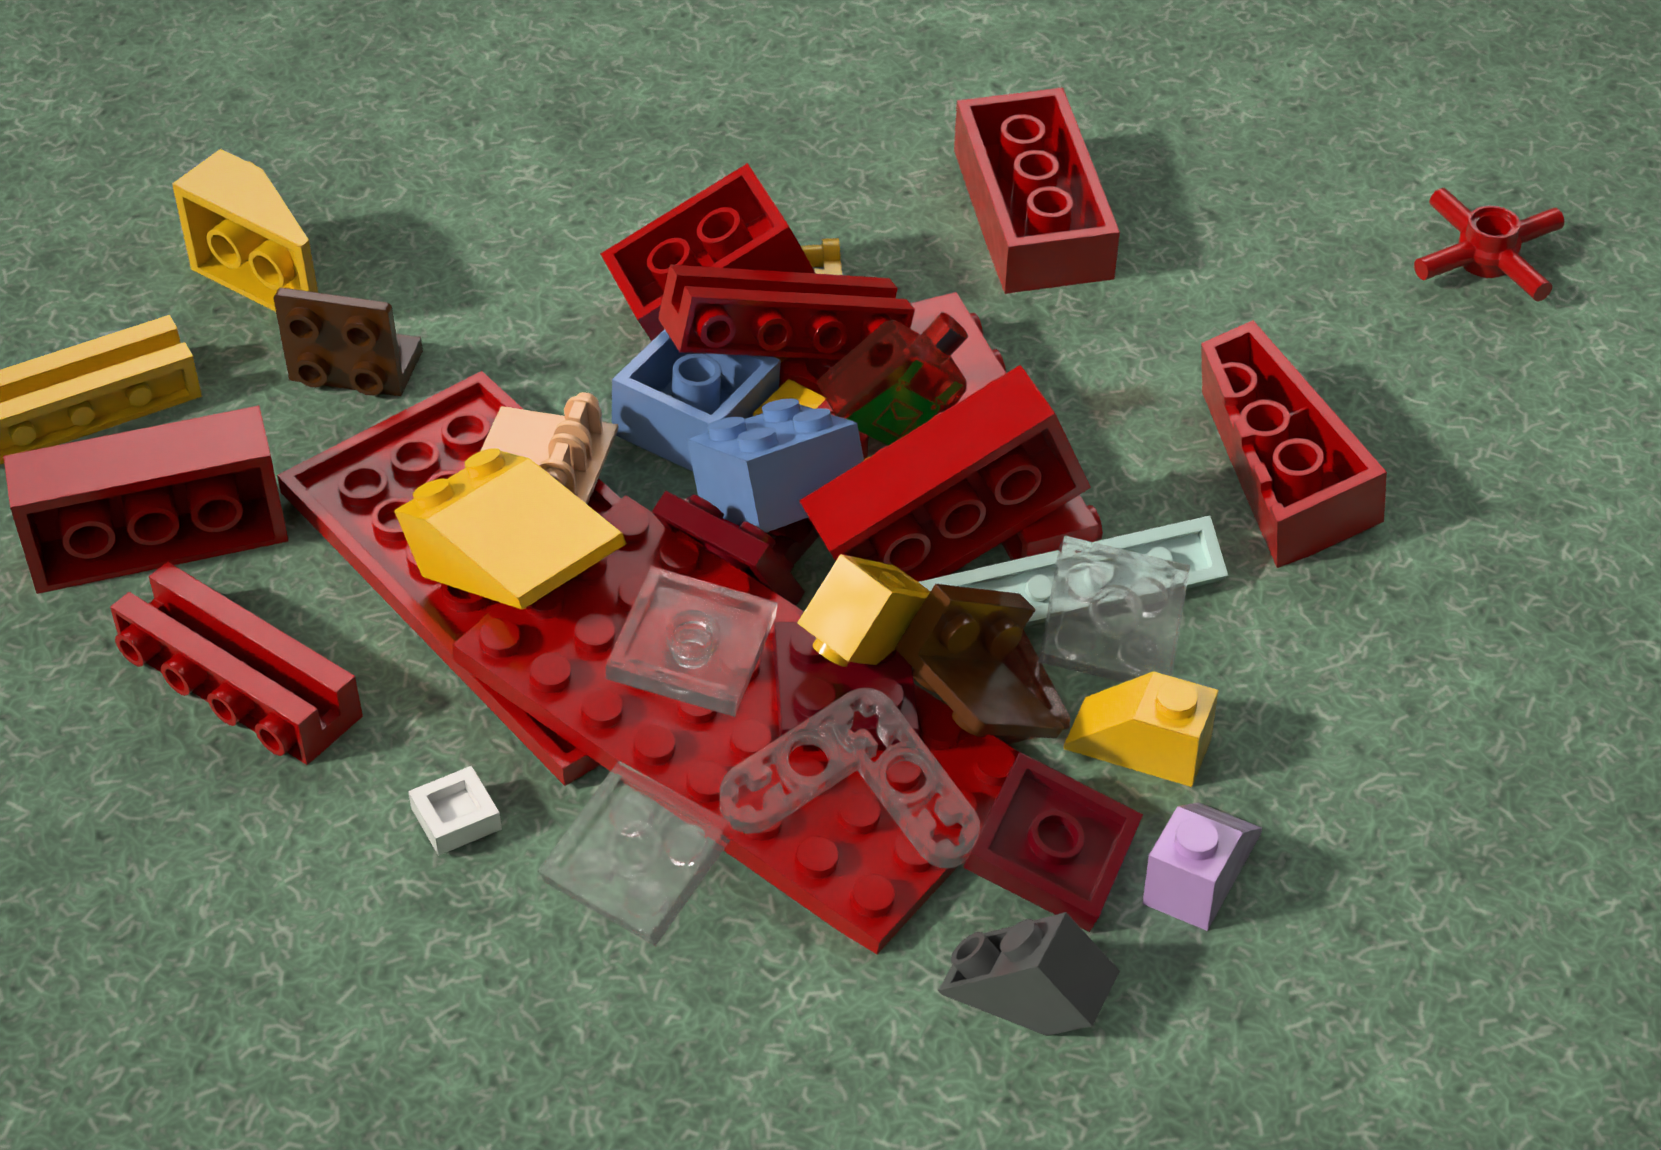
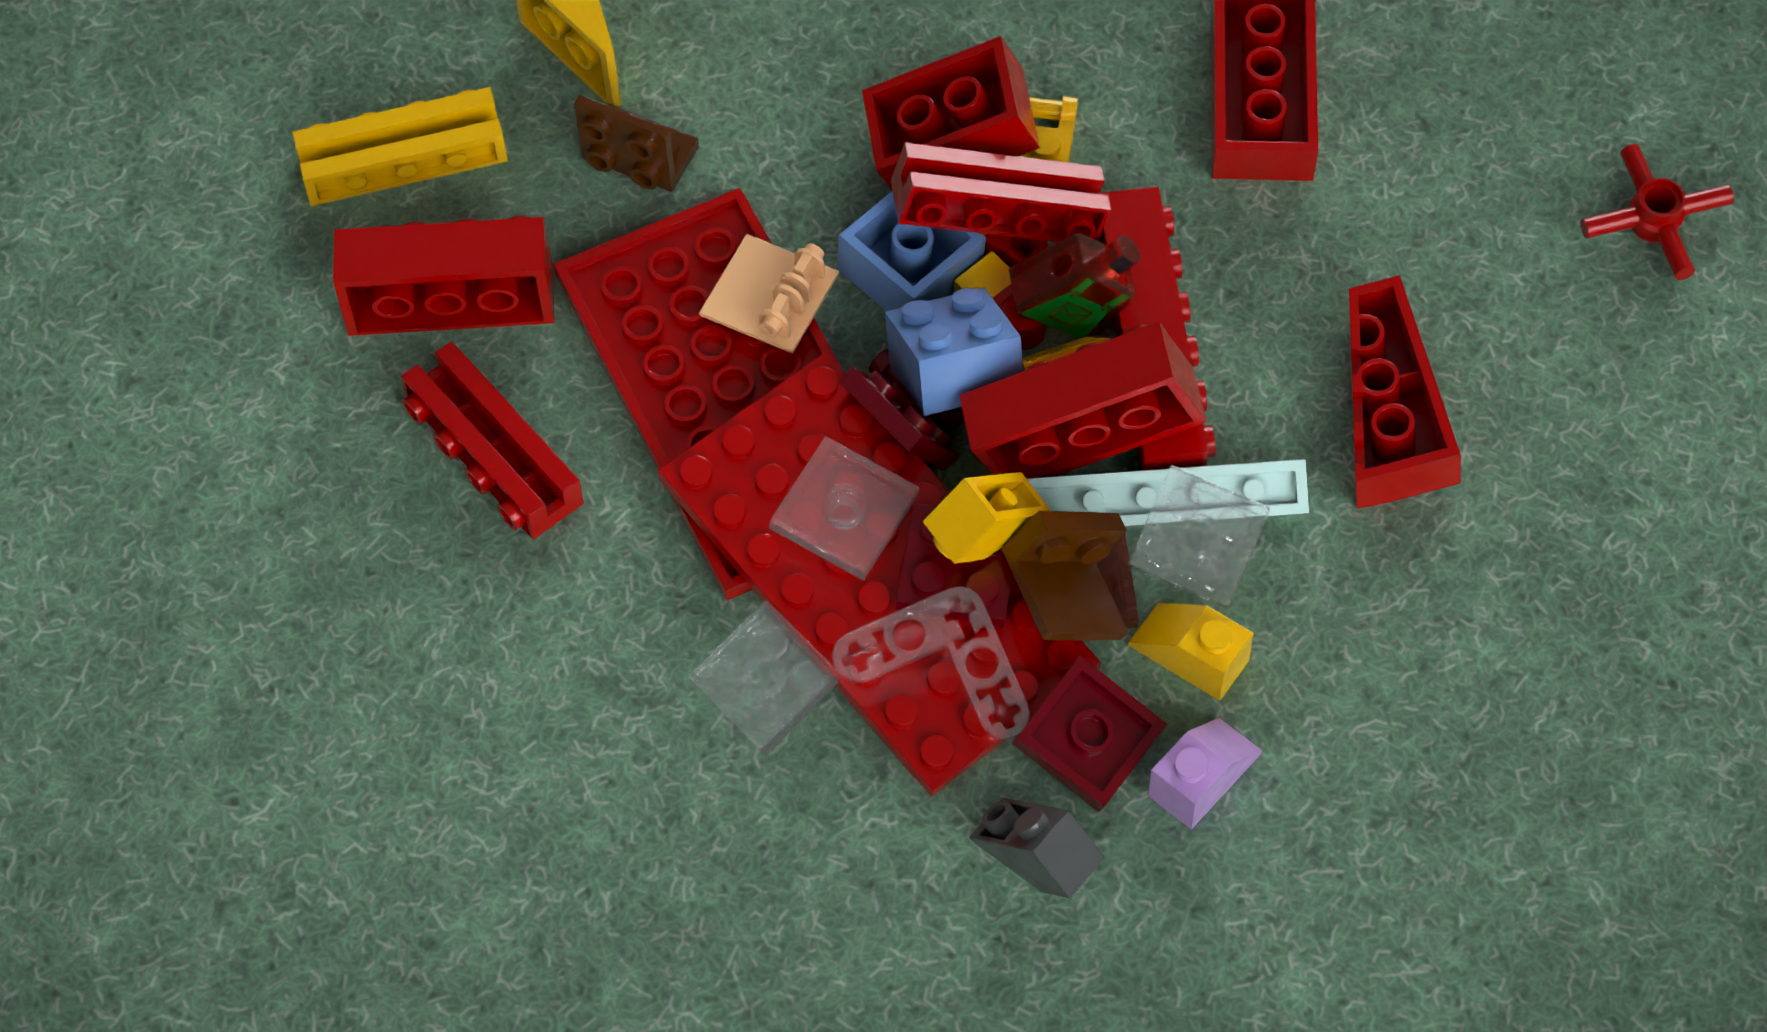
camera: 15 degrees right, 15 degrees up
(455, 810) = (636, 608): white plate -> none
(504, 530) = (719, 375): yellow slope -> none

